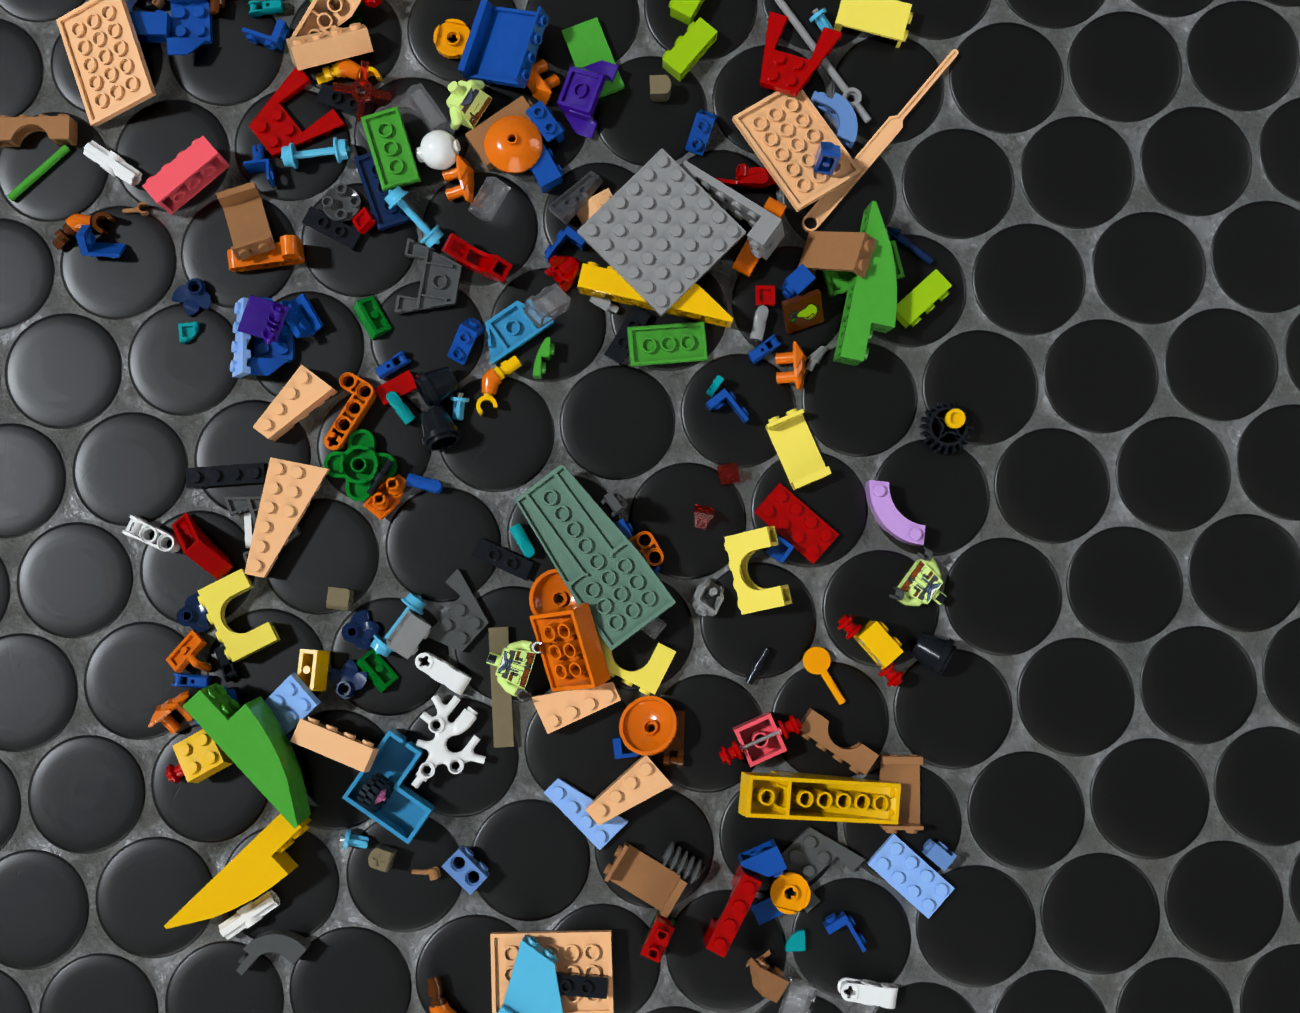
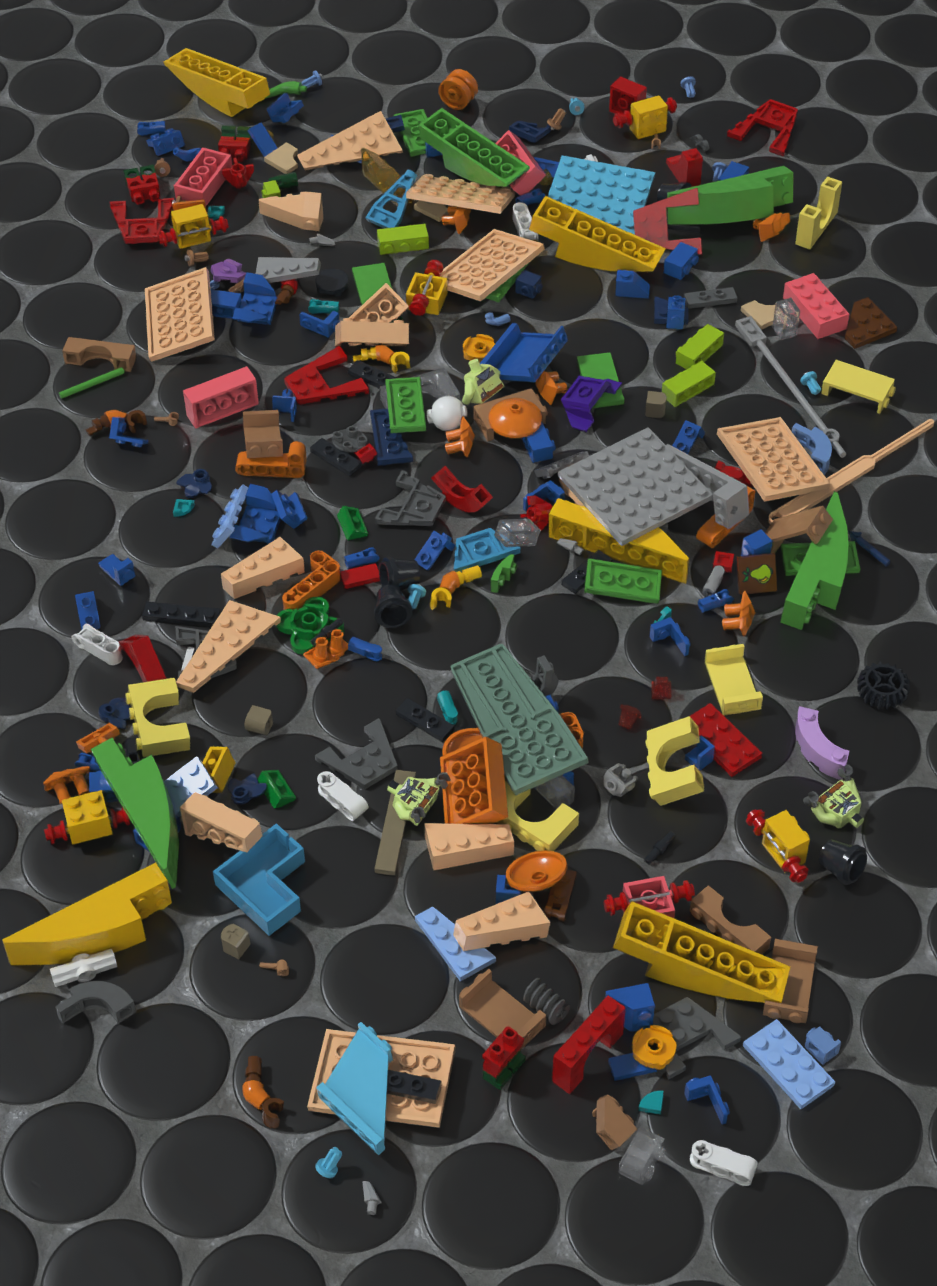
camera: 15 degrees right, 35 degrees down
(112, 163) = (158, 384): white piece -> none
(126, 492) = (87, 609): none -> blue bracket
(142, 431) = (117, 570): none -> blue bracket
(263, 319) = (257, 497): dark purple hinge -> none
(291, 155) = (314, 400): medium azure piece -> none
(354, 840) = (209, 922): medium azure piece -> none
(362, 83) = (388, 361): clear red bar -> none
(364, 630) = (270, 752): dark blue plate -> none
(375, 792) = (247, 873): black wheel -> none
(395, 197) = (401, 436): medium azure piece -> none
(400, 407) = (360, 587): teal bar -> none
(408, 634) = (318, 753): light grey hinge -> none
(413, 603) = (290, 763): medium azure piece -> none
(437, 747) = (325, 841): white plant -> none
(461, 873) = (314, 968): medium blue brick -> none
(489, 199) = (483, 453): clear brick -> none
(543, 118) = (549, 410): blue bracket -> none
(786, 71) = (778, 409): red wing -> none
(815, 357) = (763, 615): light grey bar -> none
(817, 661) = (722, 855): light orange piece -> none
(827, 158) = (797, 463): blue slope -> none
(922, 299) = (872, 585): lime brick -> none
(955, 418) = (891, 673): yellow tile -> none

